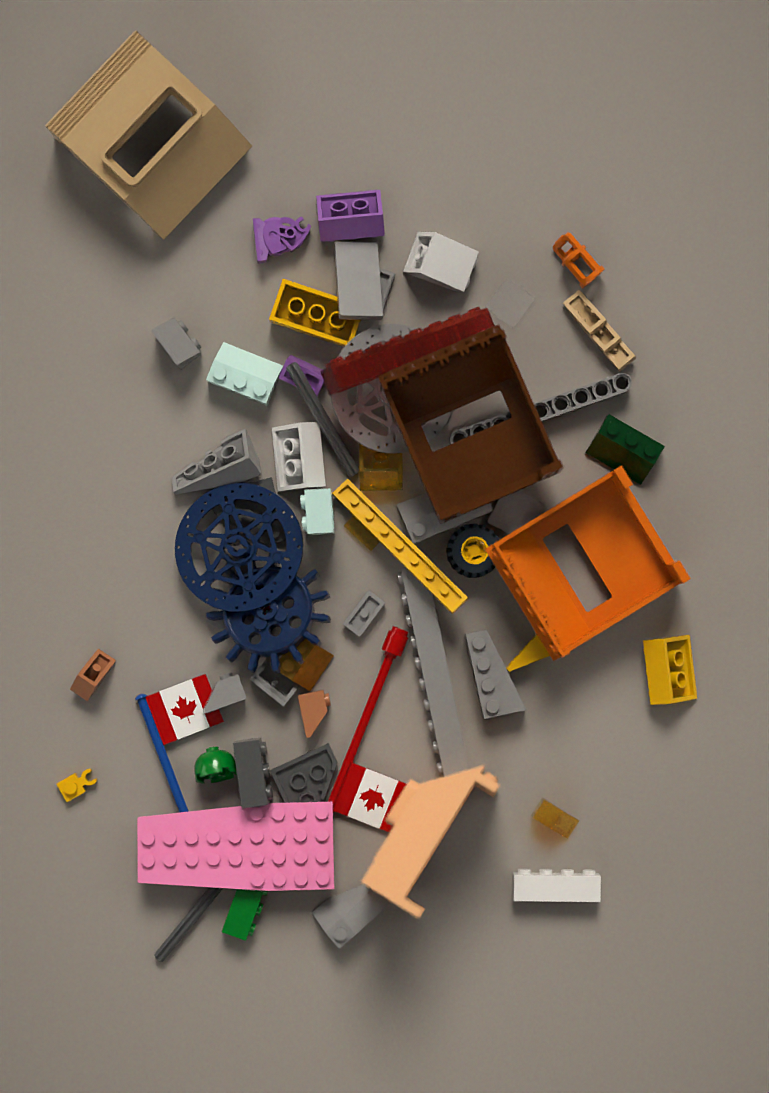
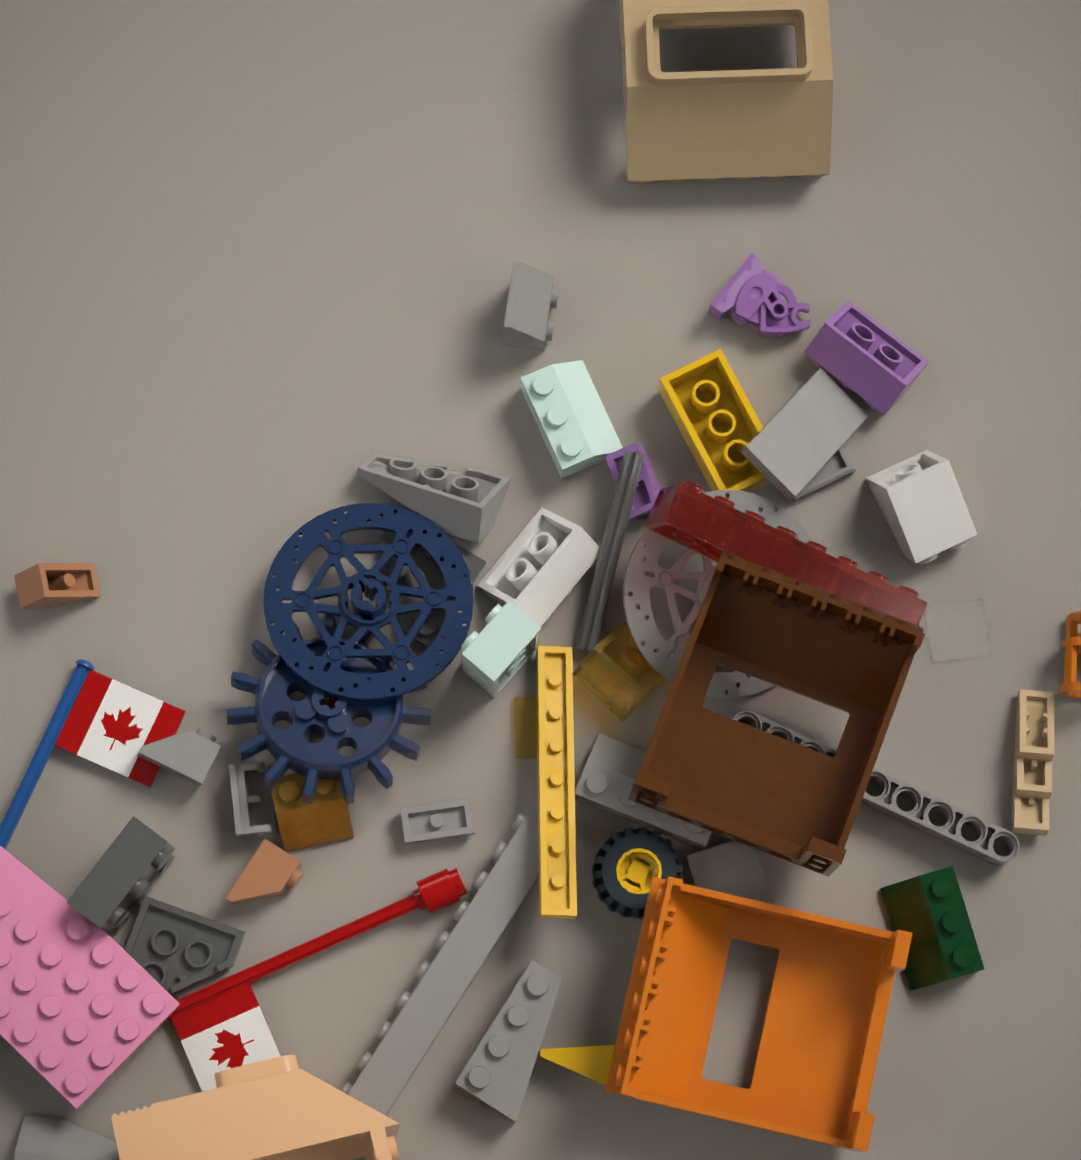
camera: 40 degrees right, 10 degrees down
(214, 765) = (86, 825): green cylinder -> none

